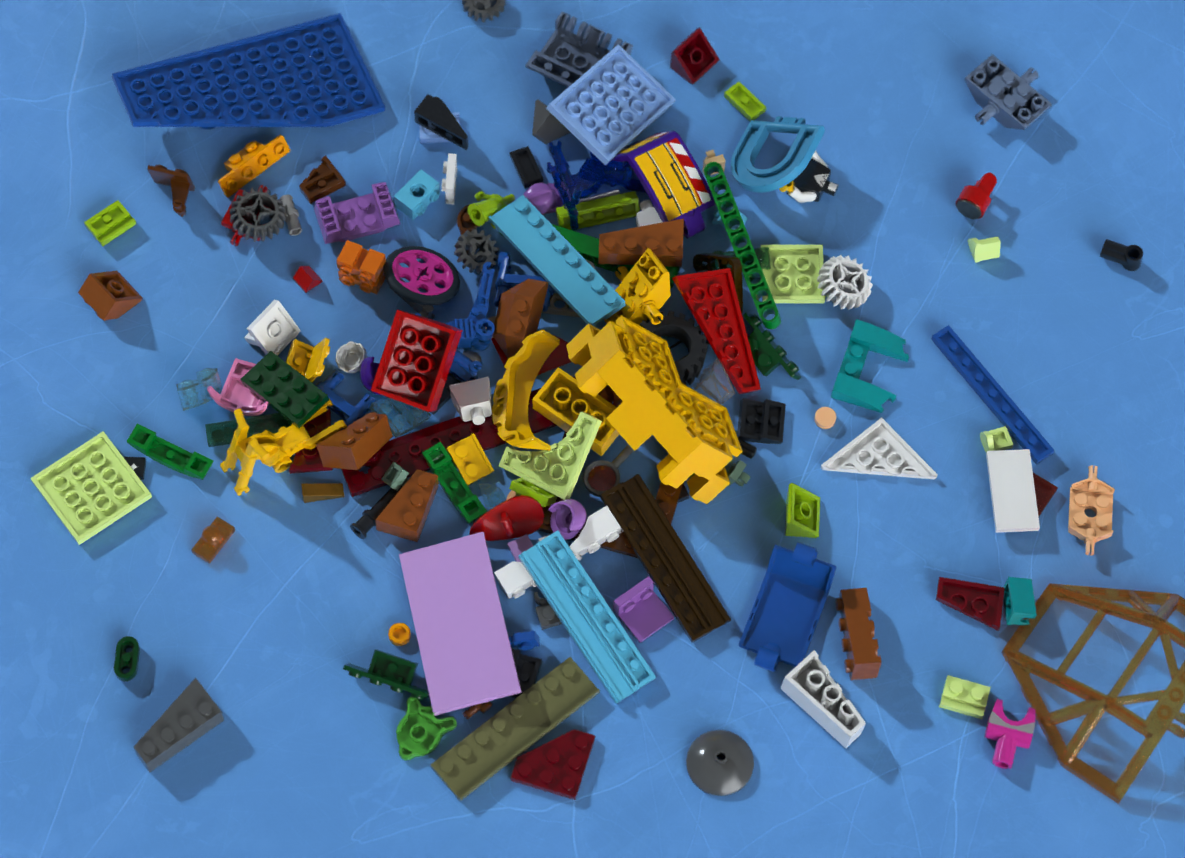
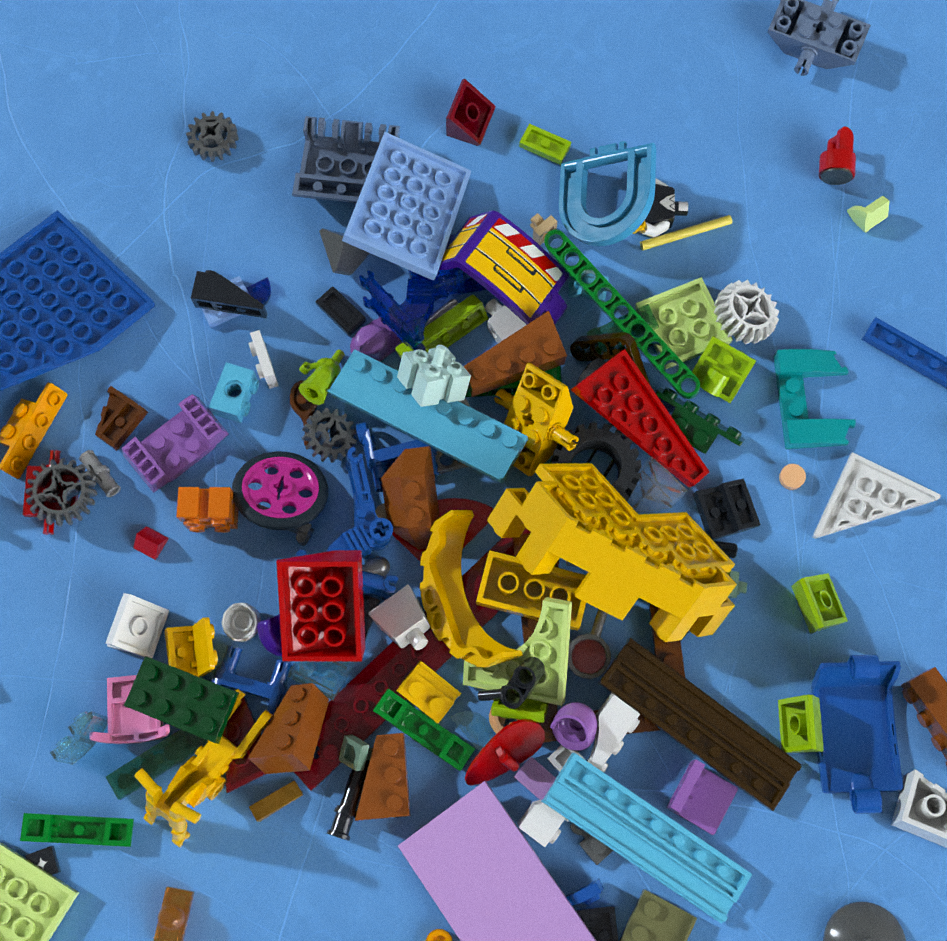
camera: 20 degrees left, 10 degrees up
(471, 129) = (260, 291): none -> clear blue tile
(542, 471) = (520, 681): none -> black beam
(573, 231) = (433, 376): none -> light aqua brick
(745, 590) = (800, 724): none -> lime slope
(805, 317) = (722, 369): none -> lime plate
(827, 209) = (686, 232): none -> light yellow bar

